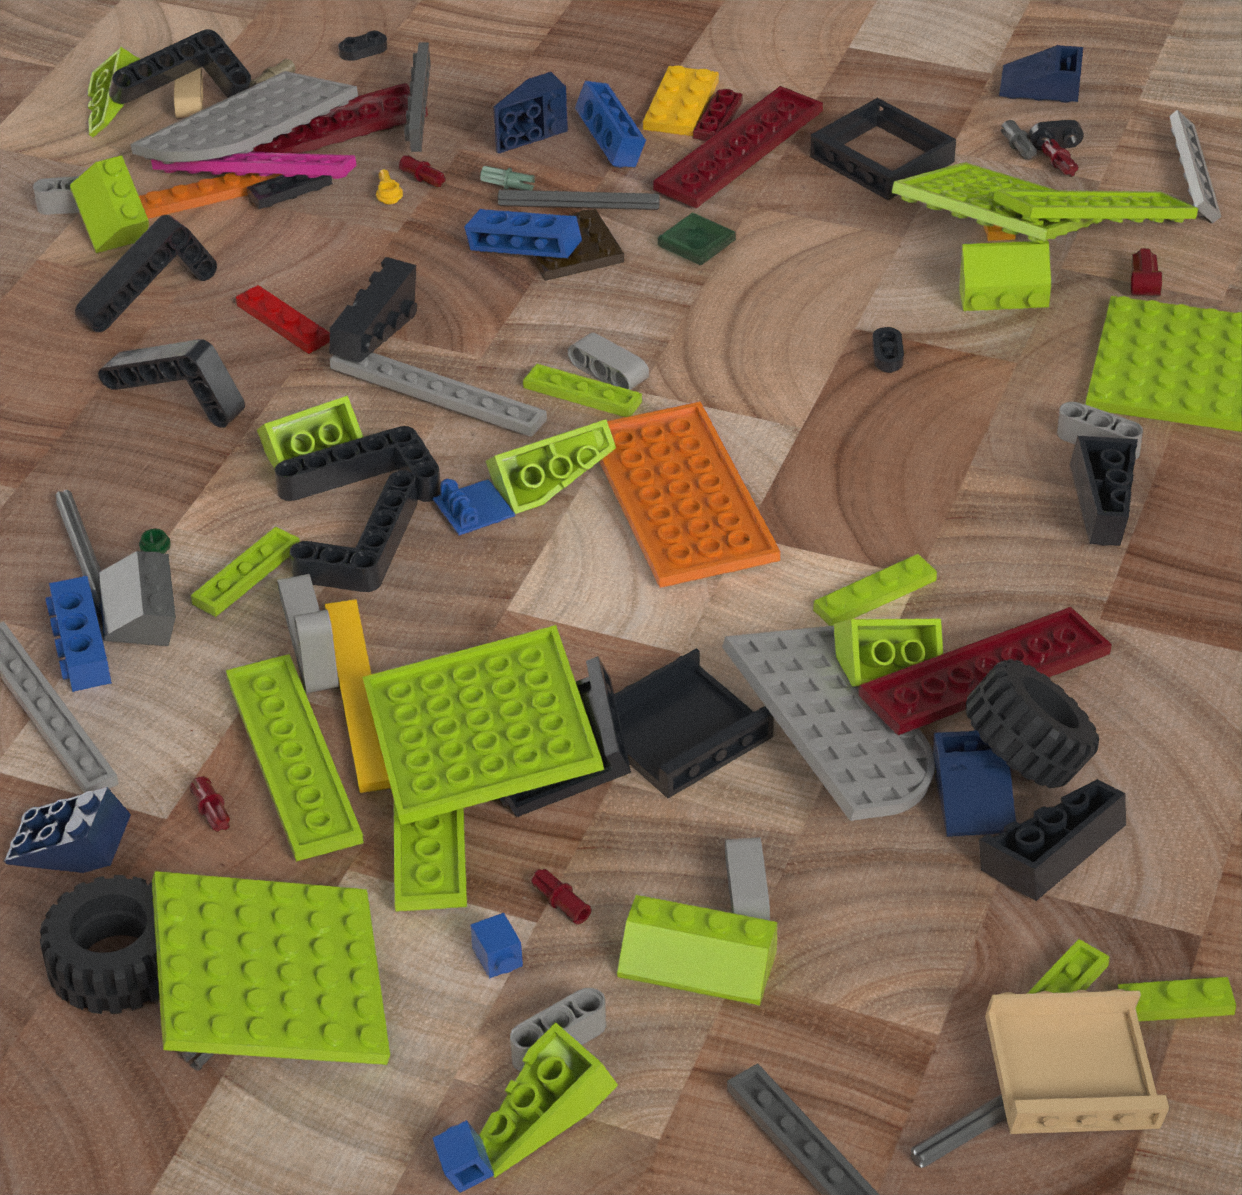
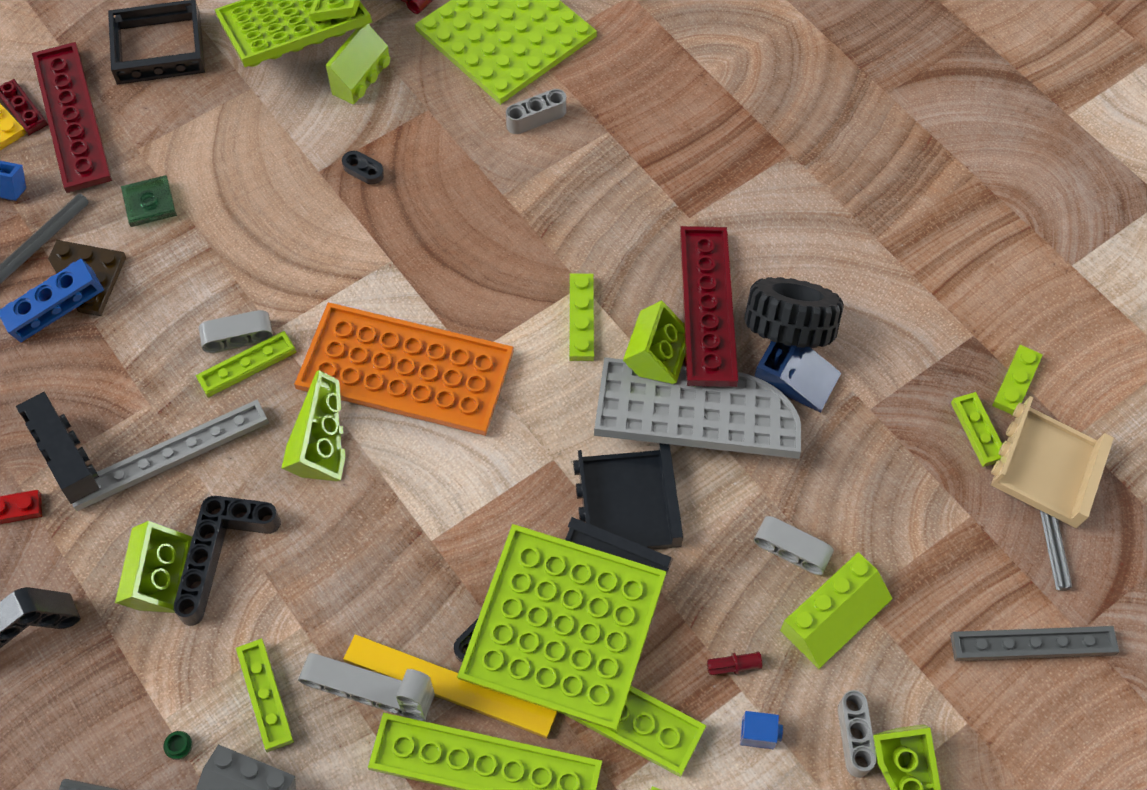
camera: 60 degrees left, 20 degrees up
(367, 564) = (302, 587): black beam -> none
(472, 505) = (313, 502): blue hinge -> none
(1055, 840) = (874, 366): black wedge -> none
(1103, 484) = (594, 142): black wedge -> none

